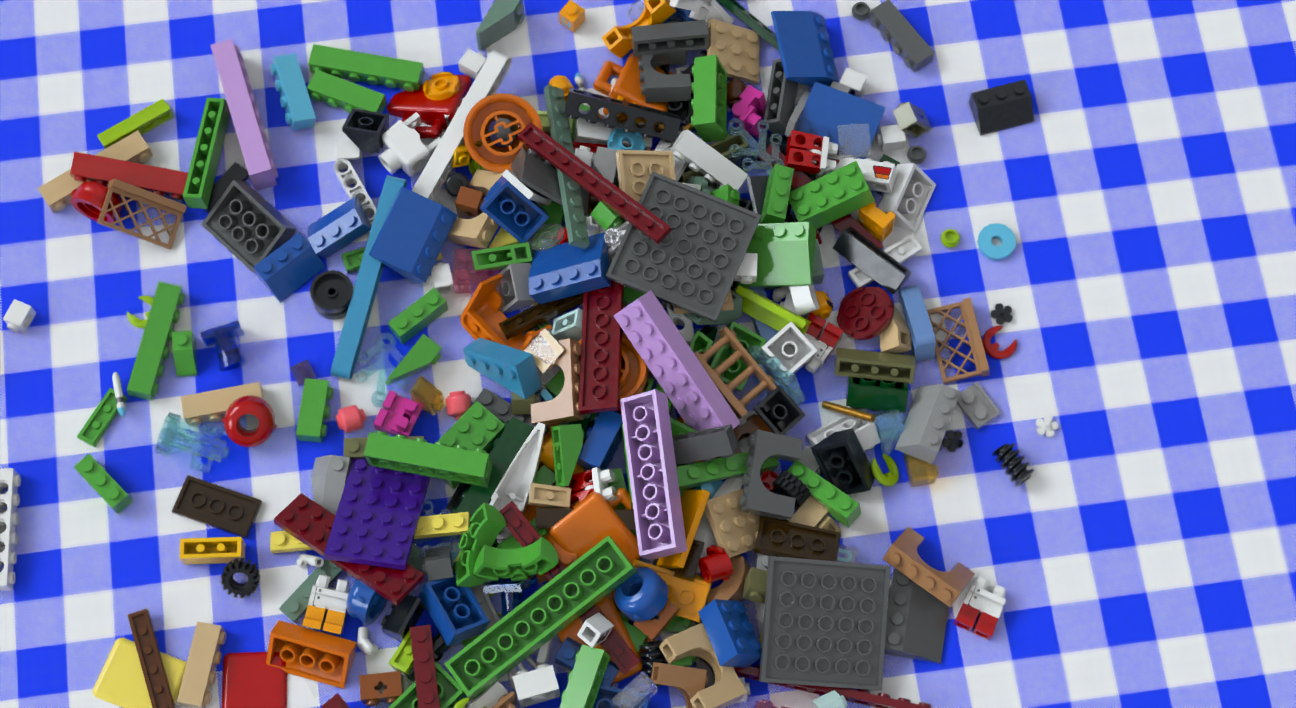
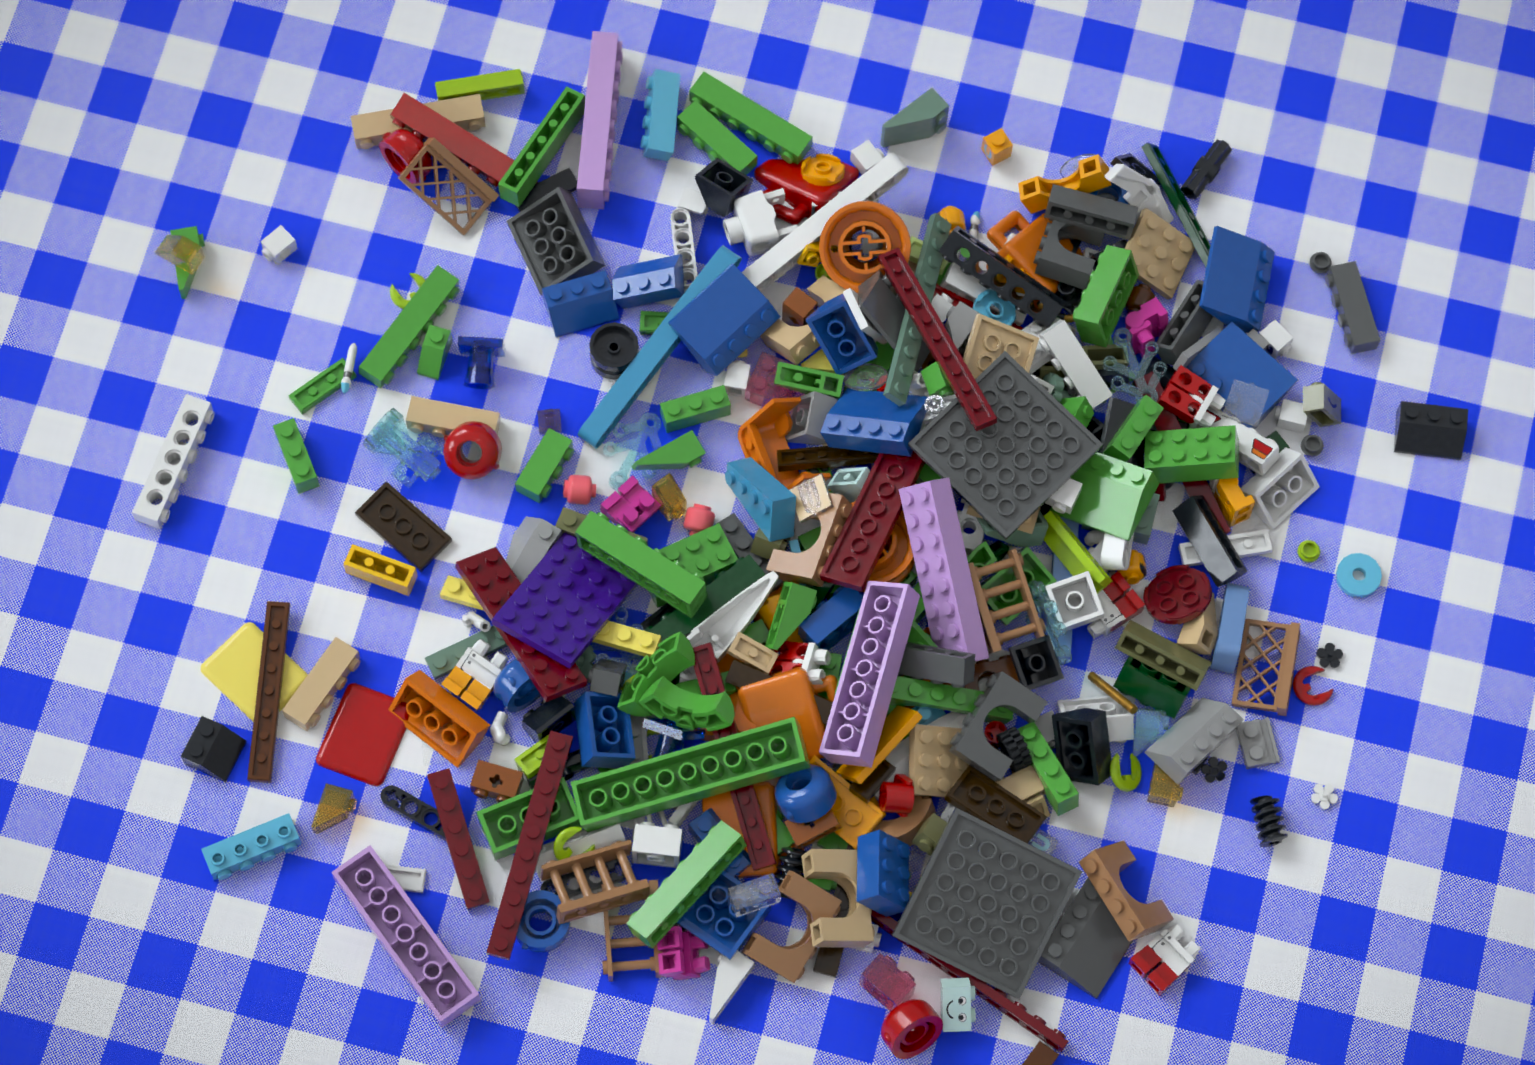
camera: 20 degrees right, 0 degrees up
(235, 587) = (389, 618): black tyre -> none
(454, 182) = (794, 279): black head -> none
(595, 630) = (741, 811): white brick -> none

